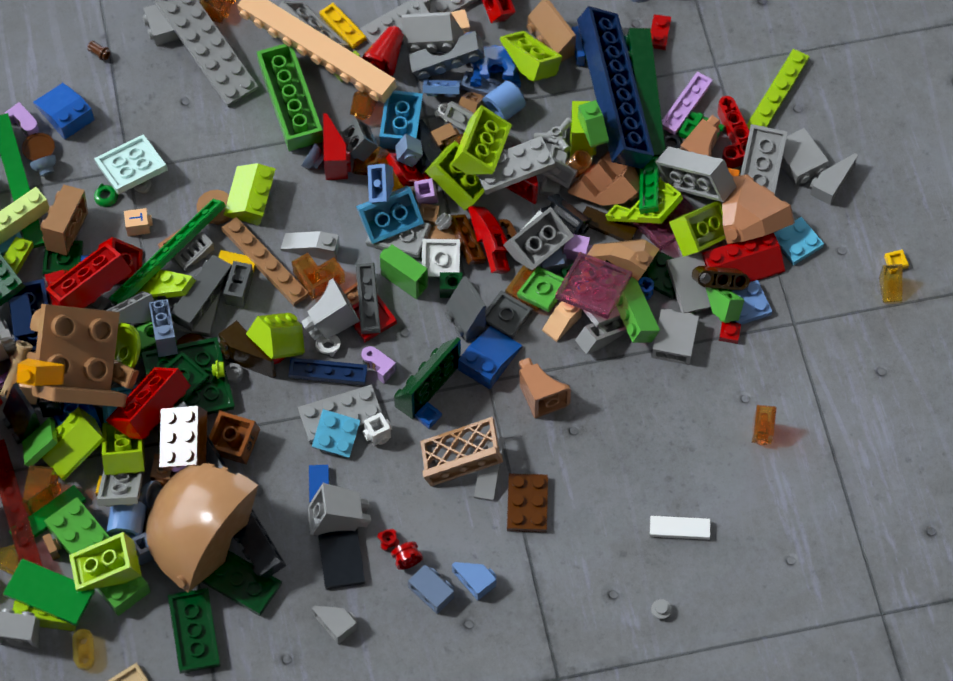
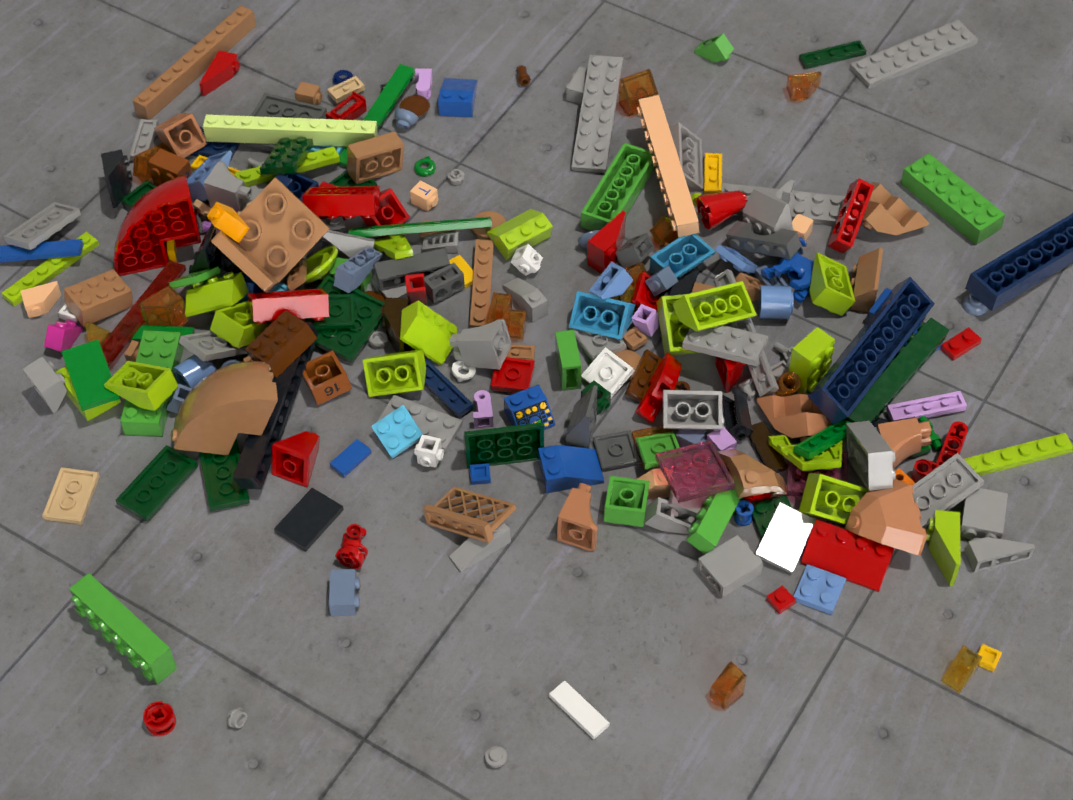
camera: 45 degrees right, 10 degrees down
(83, 651) = (76, 435): clear yellow plate -> none
(130, 164) = (460, 156): light aqua plate -> none
(218, 369) = (365, 325): lime plate -> none
(226, 313) = (416, 288): none -> red window
(282, 213) = (526, 260): none -> white brick
(283, 388) = (395, 372): none -> lime slope
(284, 518) = (295, 457): none -> red slope
(336, 621) = (253, 558): light grey slope -> none
(337, 510) = (339, 482): light grey hips -> none
(367, 298) = (523, 359): dark grey tile -> none
(414, 337) = (528, 408): none -> blue slope
(443, 221) = (637, 349): light grey plate -> none
(475, 578) = (383, 613): medium blue slope -> none
(527, 502) = (483, 593): reddish brown plate -> none
(559, 347) = (626, 501): none -> bright green slope
(593, 123) = (813, 350): bright green slope -> none
(725, 304) = (795, 571): bright green slope -> none
(727, 282) = (814, 559): dark brown beam -> none
(798, 241) = (914, 576): medium azure plate -> none
(803, 199) = (944, 542): none -> lime slope

